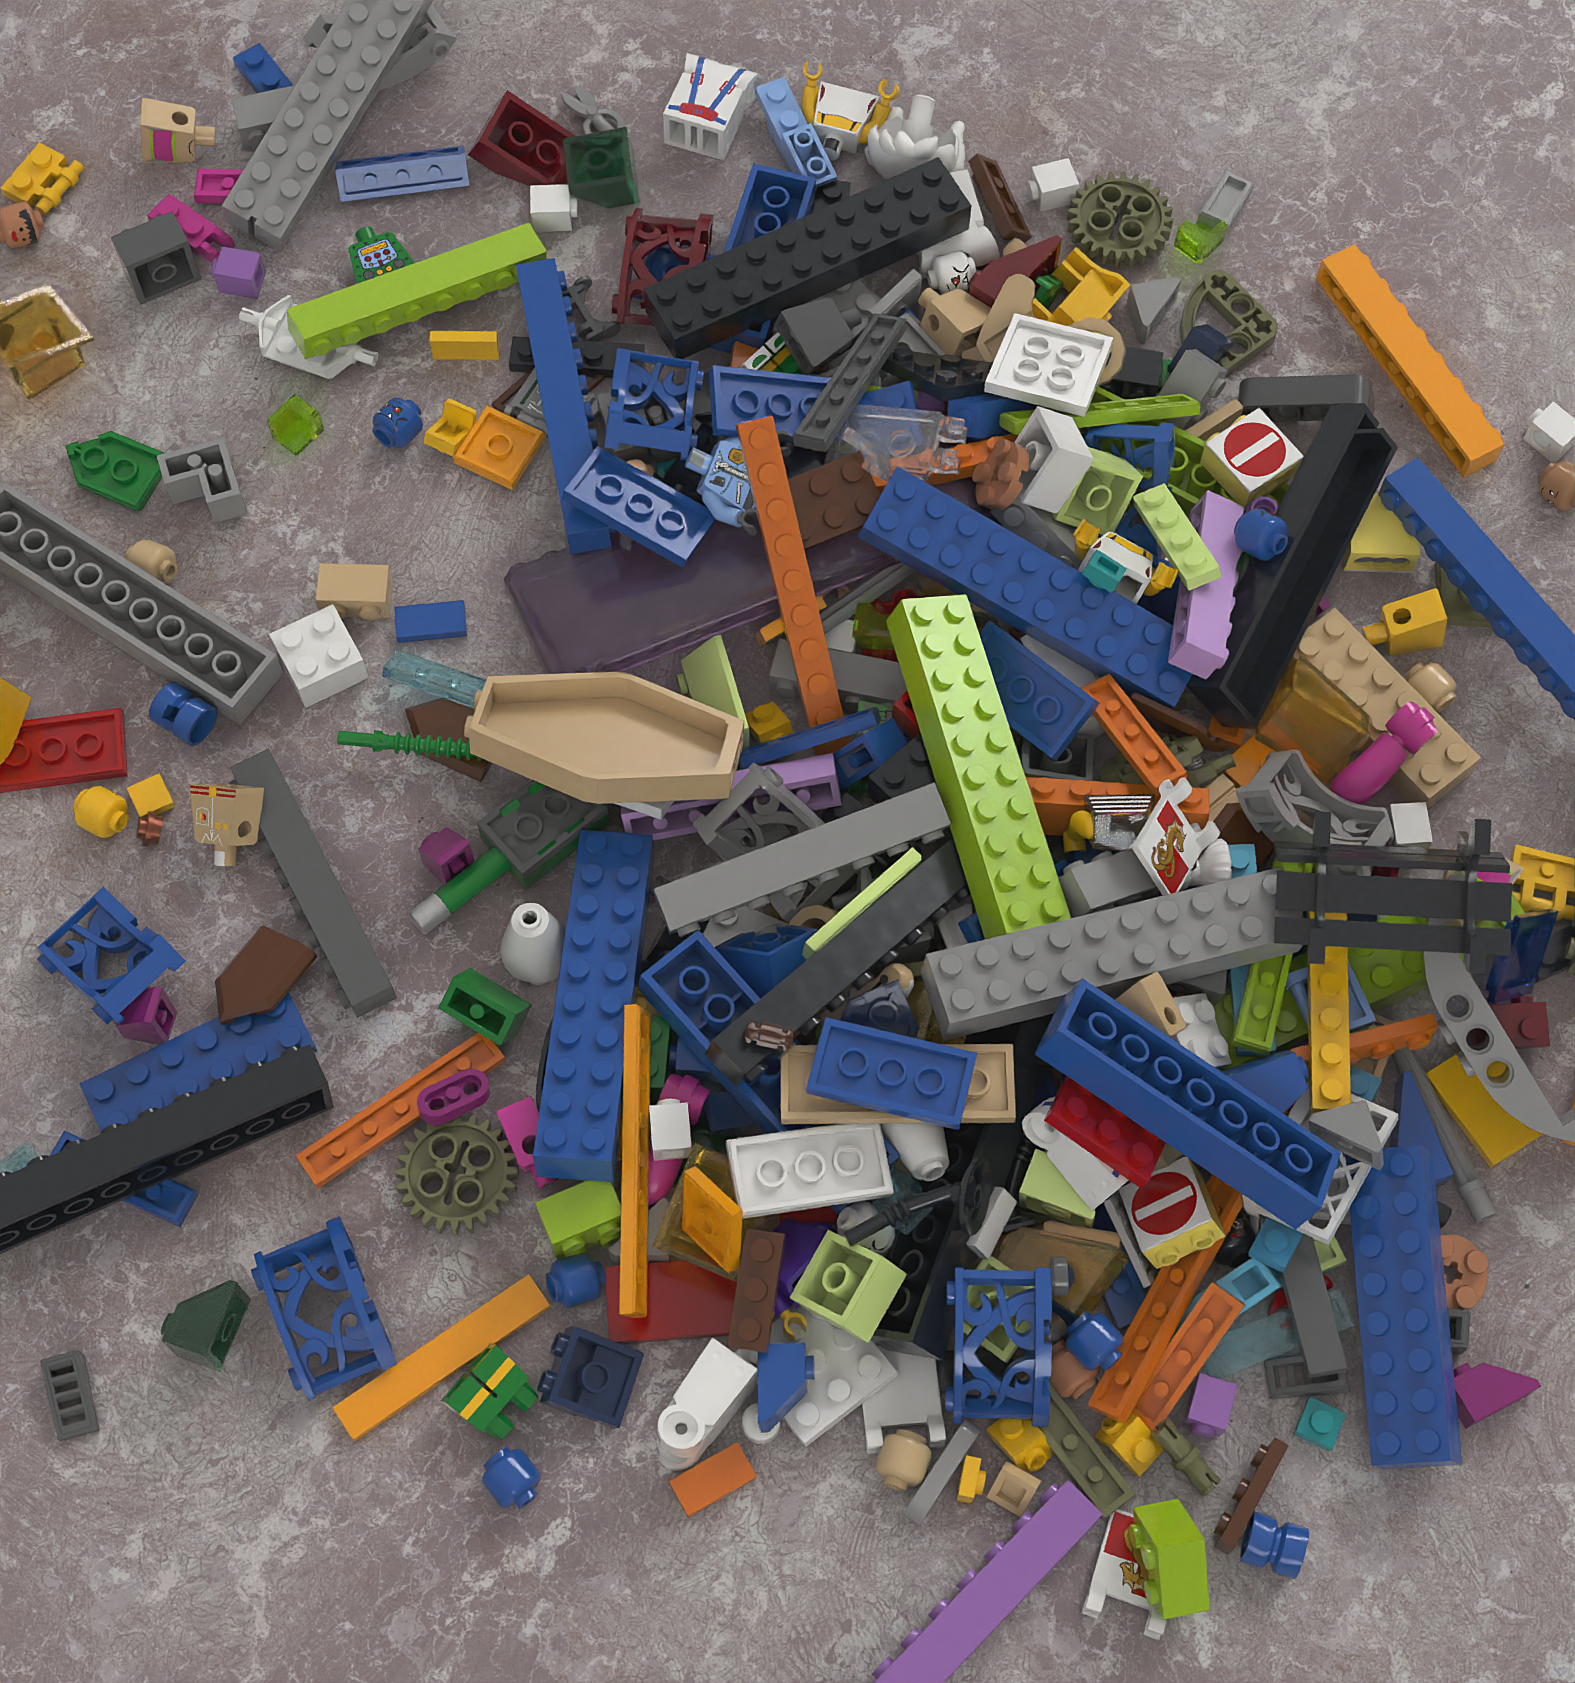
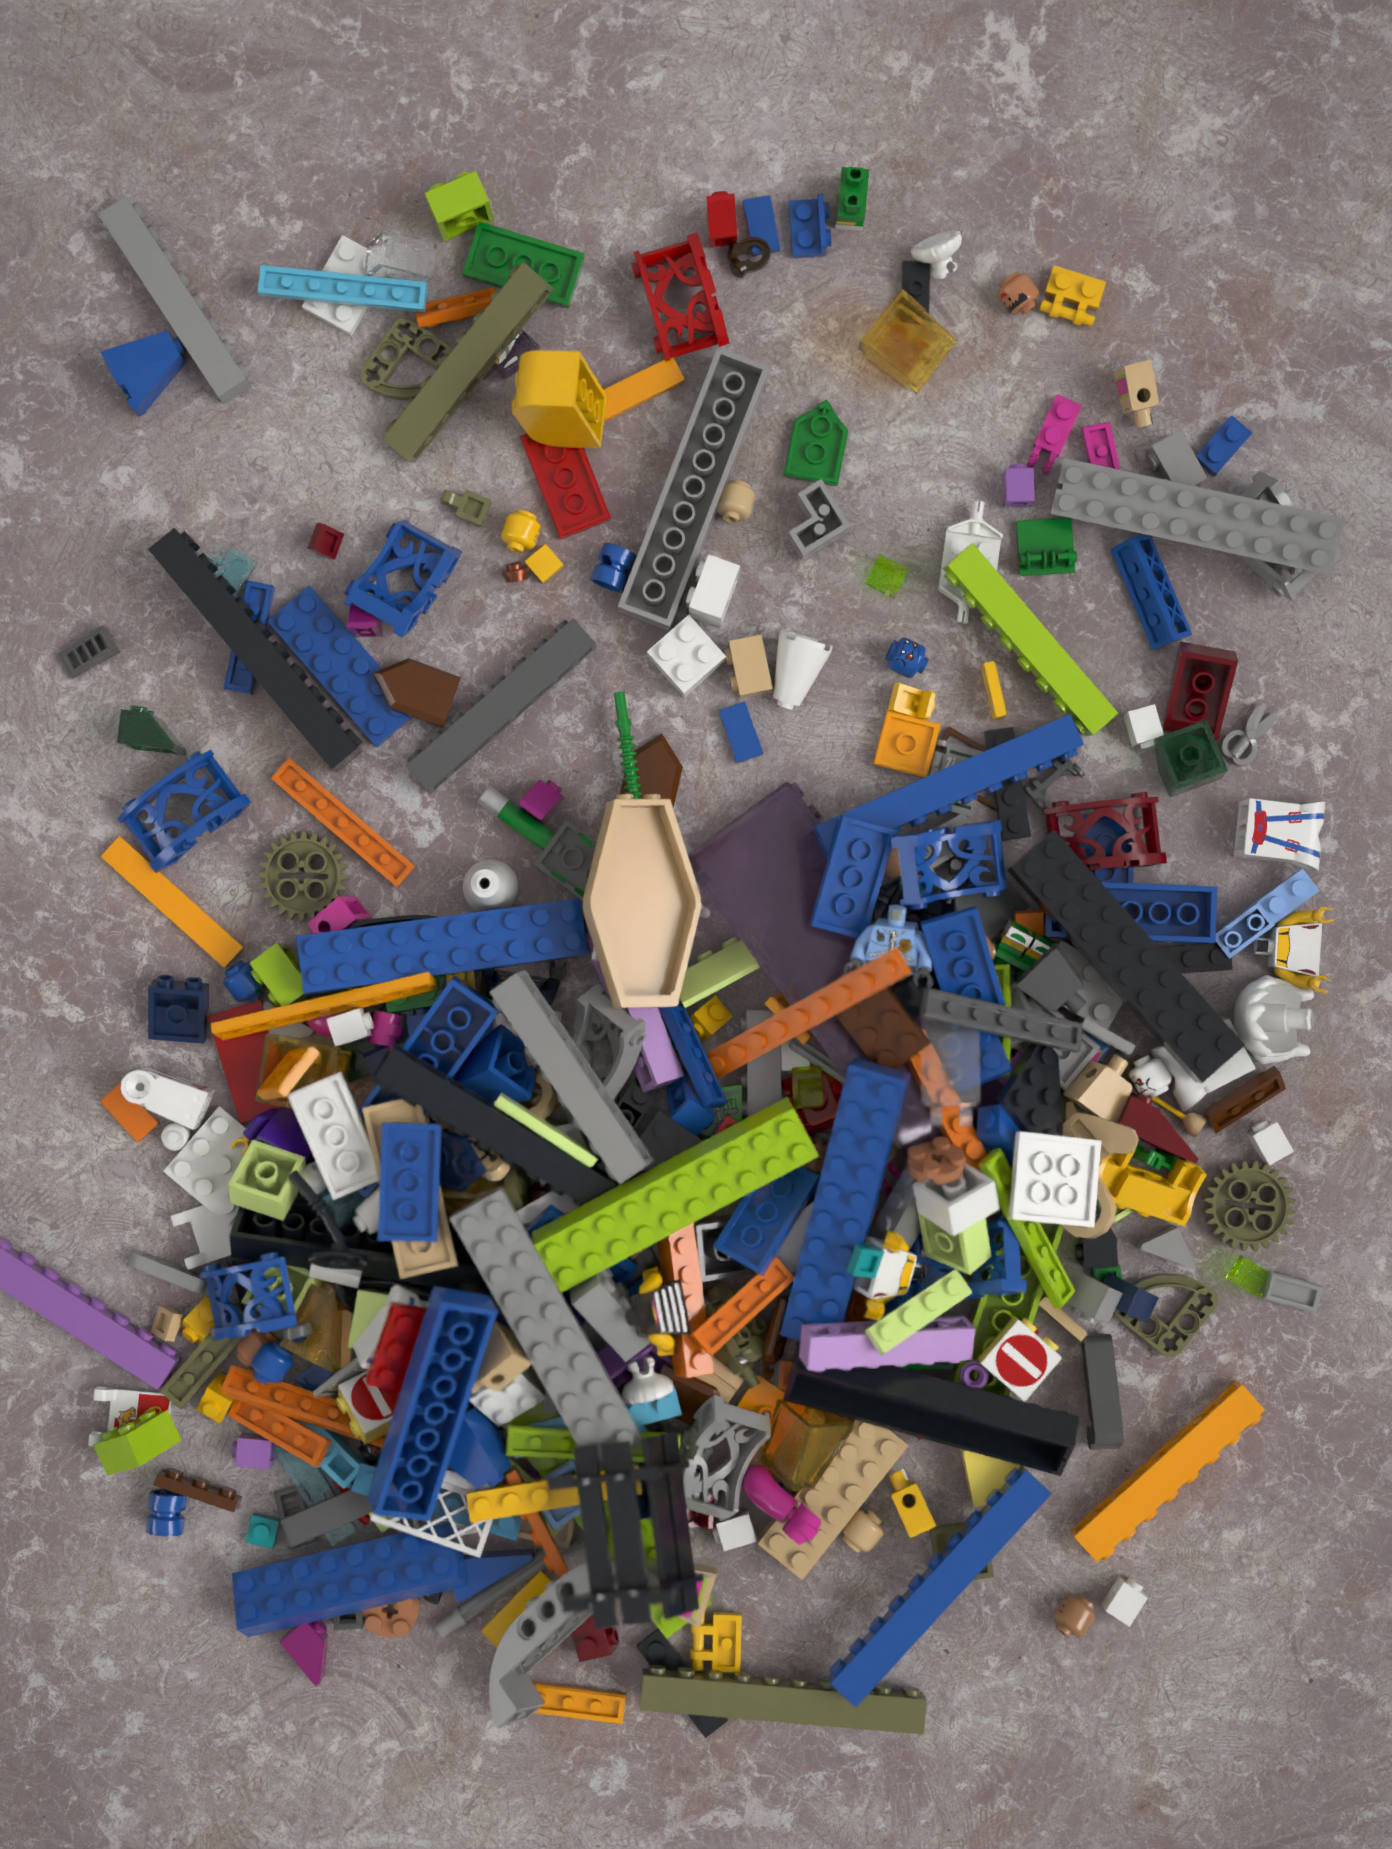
camera: 80 degrees right, 20 degrees up
(29, 1048) = (325, 541): none -> dark red plate
(48, 864) = (469, 508): none -> olive plate
(156, 257) = (1009, 416): dark grey brick -> none
(226, 817) = (533, 627): tan torso -> none
(249, 601) = (714, 590): none -> white brick
(316, 262) = (1045, 547): none -> green hinge
(369, 535) = (797, 667): none -> white cone
(376, 254) = (1053, 598): torso -> none
(433, 677) = (689, 765): clear light blue tile -> none
(452, 1096) = (353, 859): magenta plate -> none
(477, 1405) = (150, 940): green hips -> none
(485, 1006) = (429, 863): green brick -> none
(511, 1478) = (97, 973): blue head -> none
(756, 1290) = (247, 1116): reddish brown plate -> none
(768, 1035) = (406, 1088): reddish brown piece -> none
(782, 1381) = (197, 1146): blue slope -> none
(876, 460) = (929, 1054): clear slope -> none
(903, 1460) = (168, 1242): tan head -> none
(971, 1480) = (165, 1292): yellow plate -> none
(1168, 842) = (651, 1354): white flag -> none
(1185, 1457) = (214, 1439): olive pin -> none
(1261, 534) = (936, 1379): blue head -> none
(1350, 1132) = (454, 1527): light grey slope -> none
(1516, 974) = (640, 1635): clear blue piece -> none

